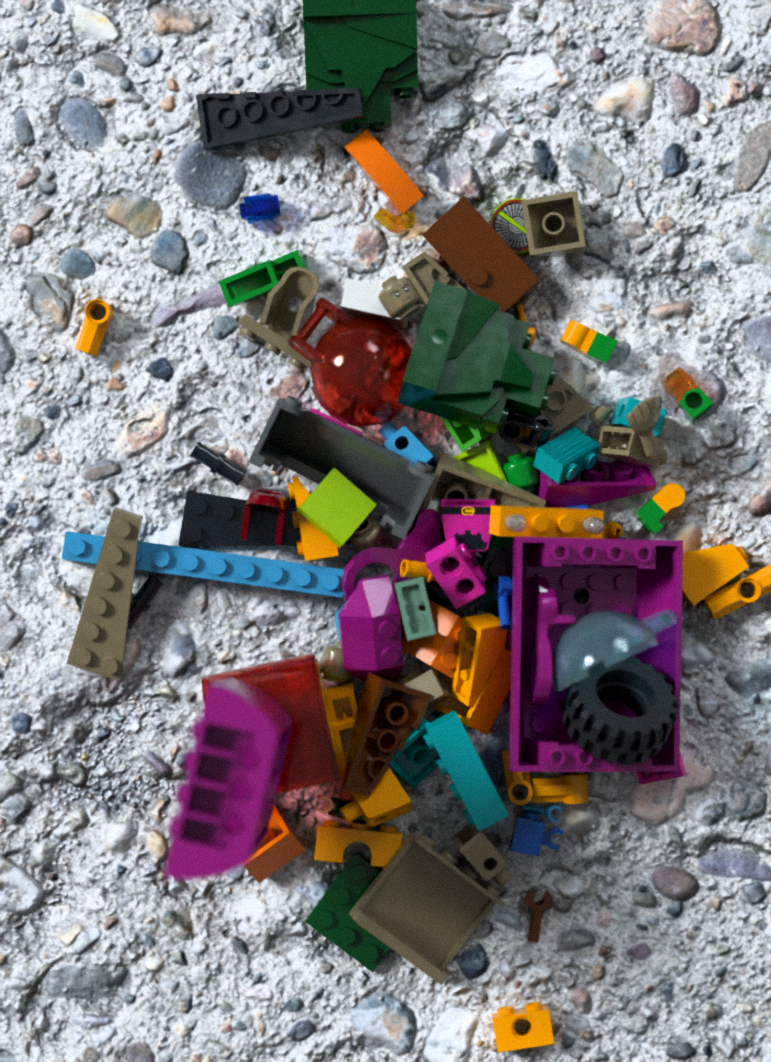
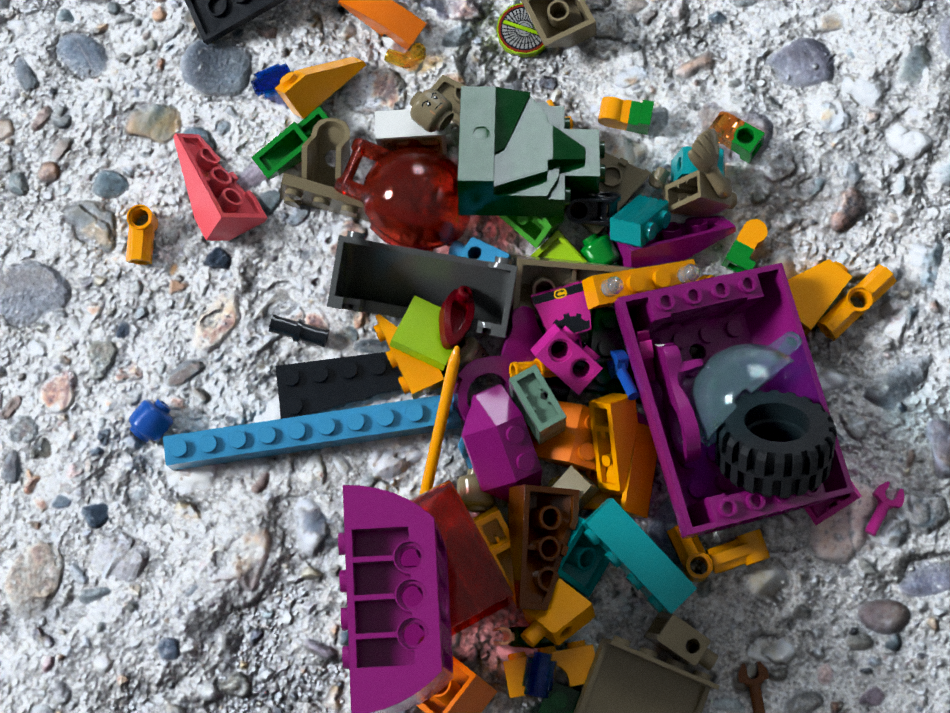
camera: 15 degrees left, 10 degrees down
(58, 509) = (151, 420): none -> blue head
(104, 622) = (226, 513): dark tan wing -> none
(143, 597) = (257, 488): black pin -> none
(175, 312) = (215, 196): none -> coral wedge
(270, 498) = (358, 343): dark red piece -> none
(299, 225) = (312, 85): none -> light orange slope
(323, 596) = (441, 420): none -> light orange piece
(345, 849) = (539, 675): none -> clear blue brick
(366, 500) = (456, 316): none -> dark red arm
(481, 256) = (496, 59): reddish brown brick -> none
(529, 592) = (647, 354): none -> dark pink bar
(529, 834) = (722, 609): blue brick -> none
(546, 811) = (729, 580): dark azure hand -> none
(707, 785) = (883, 506): none -> dark pink bar

